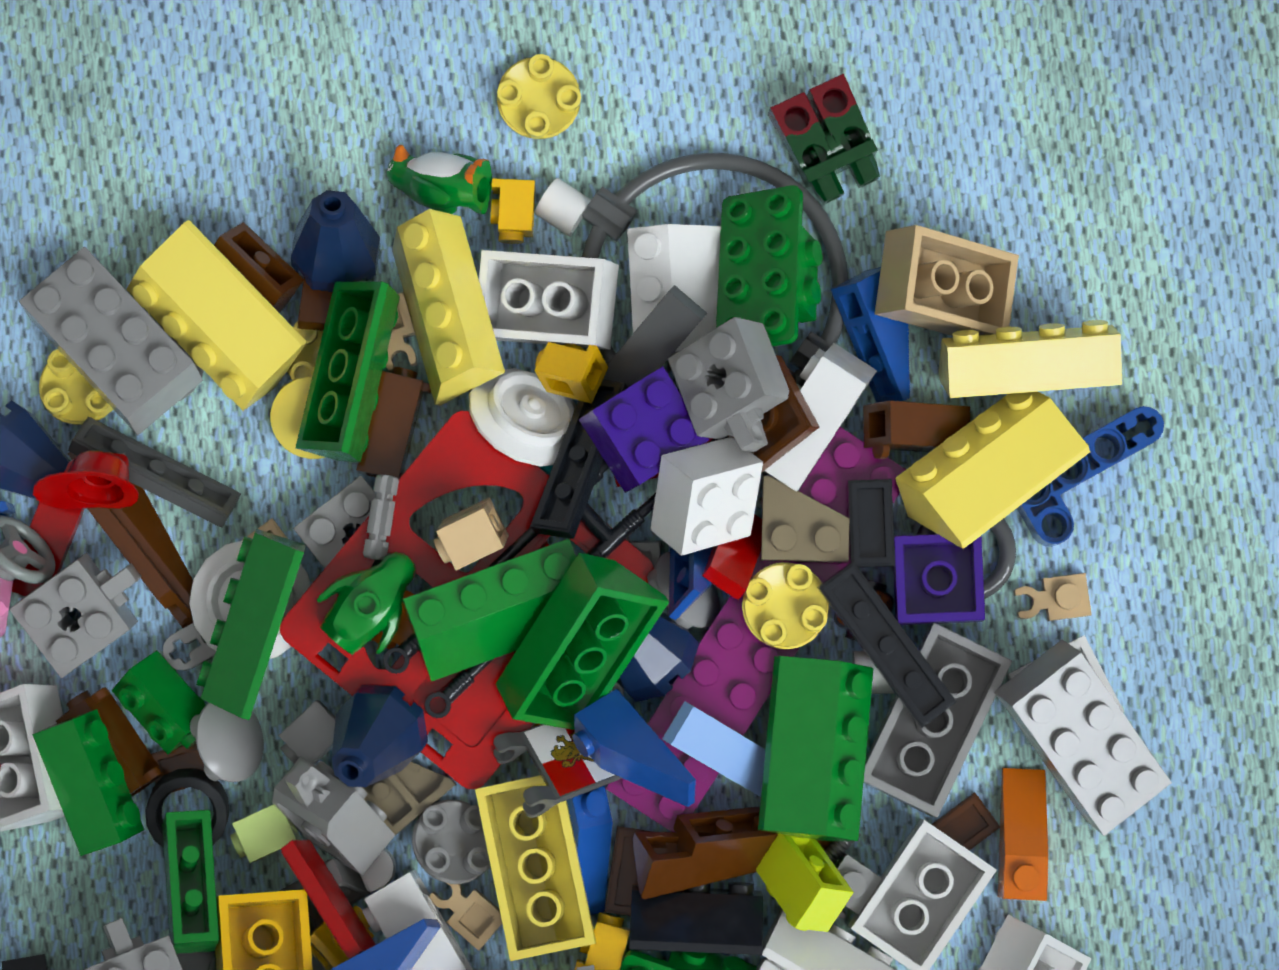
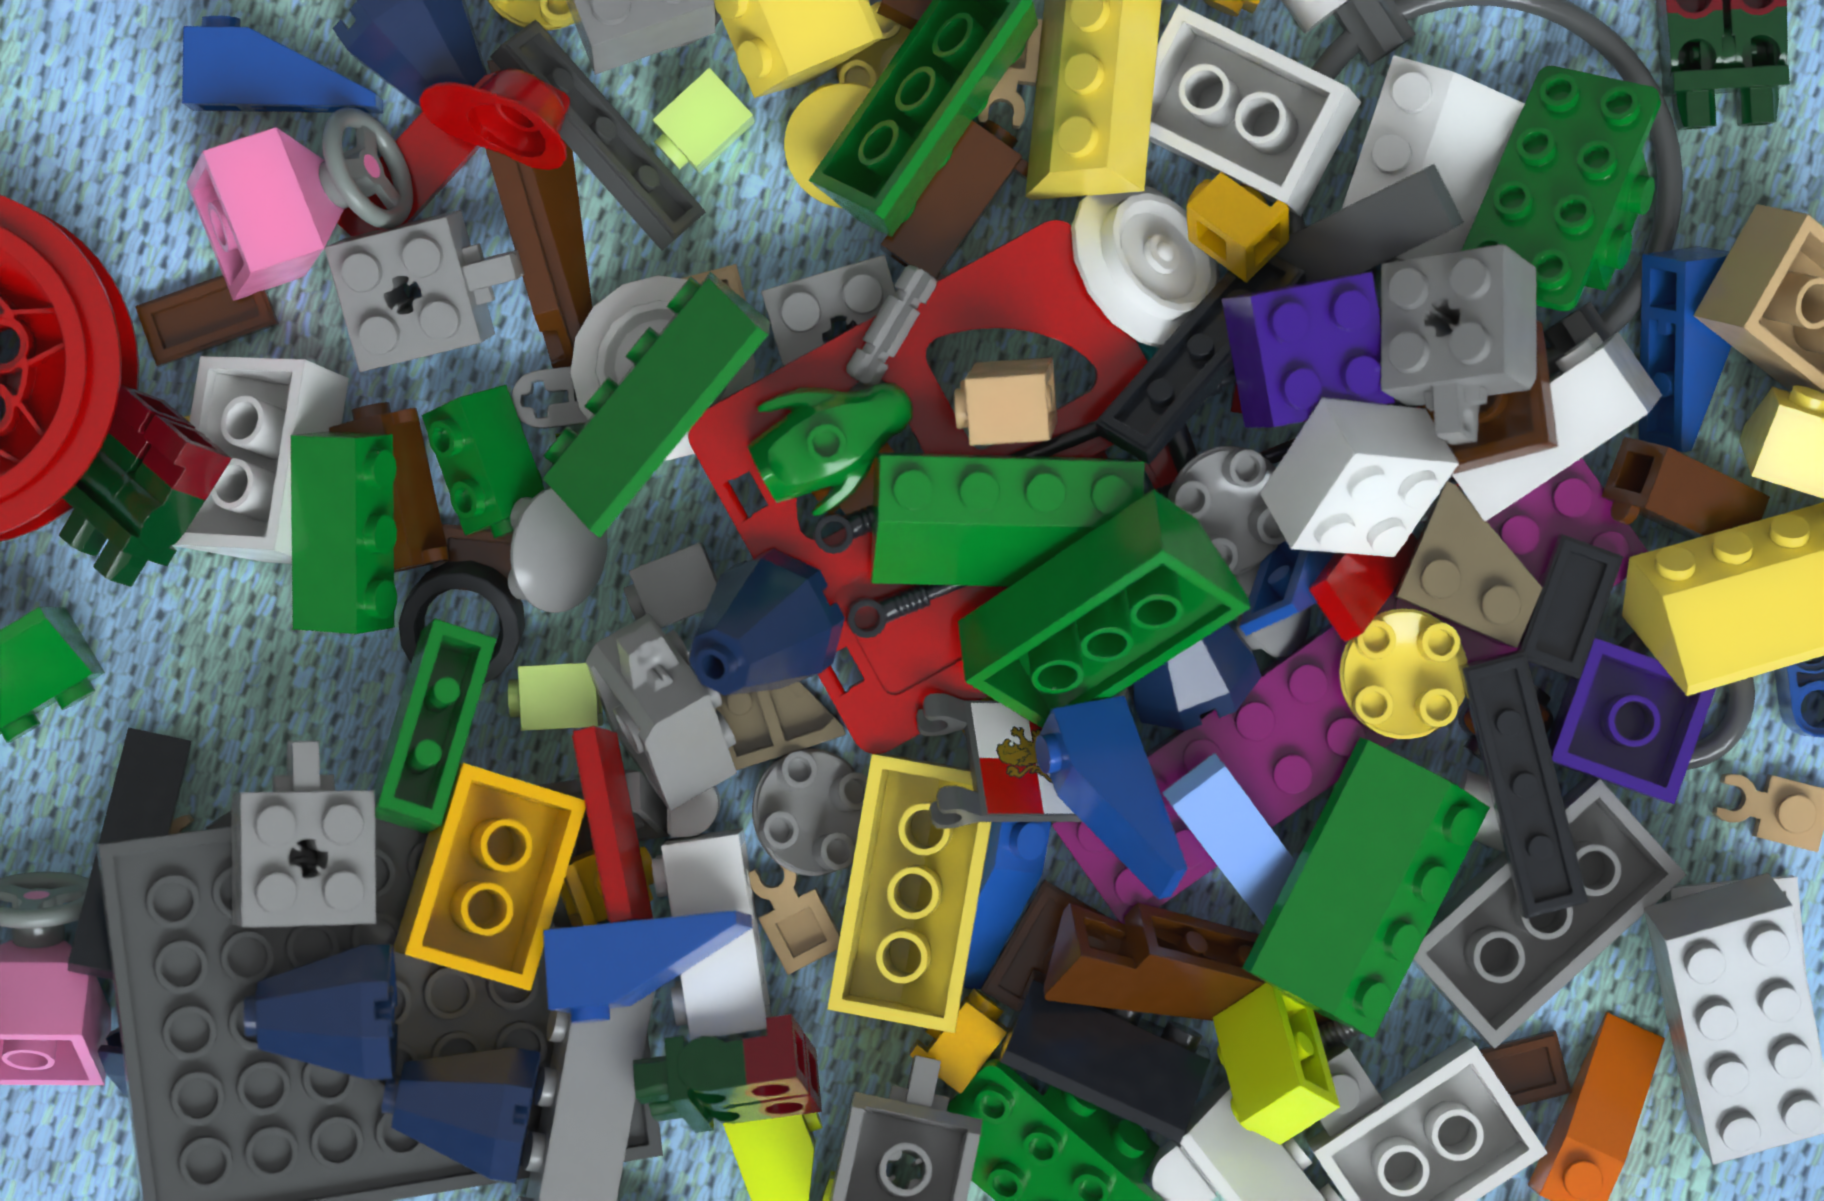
camera: 25 degrees right, 5 degrees up
(216, 439) = (701, 122): none -> yellowish green brick
(630, 542) = (1225, 497): none -> light grey dish

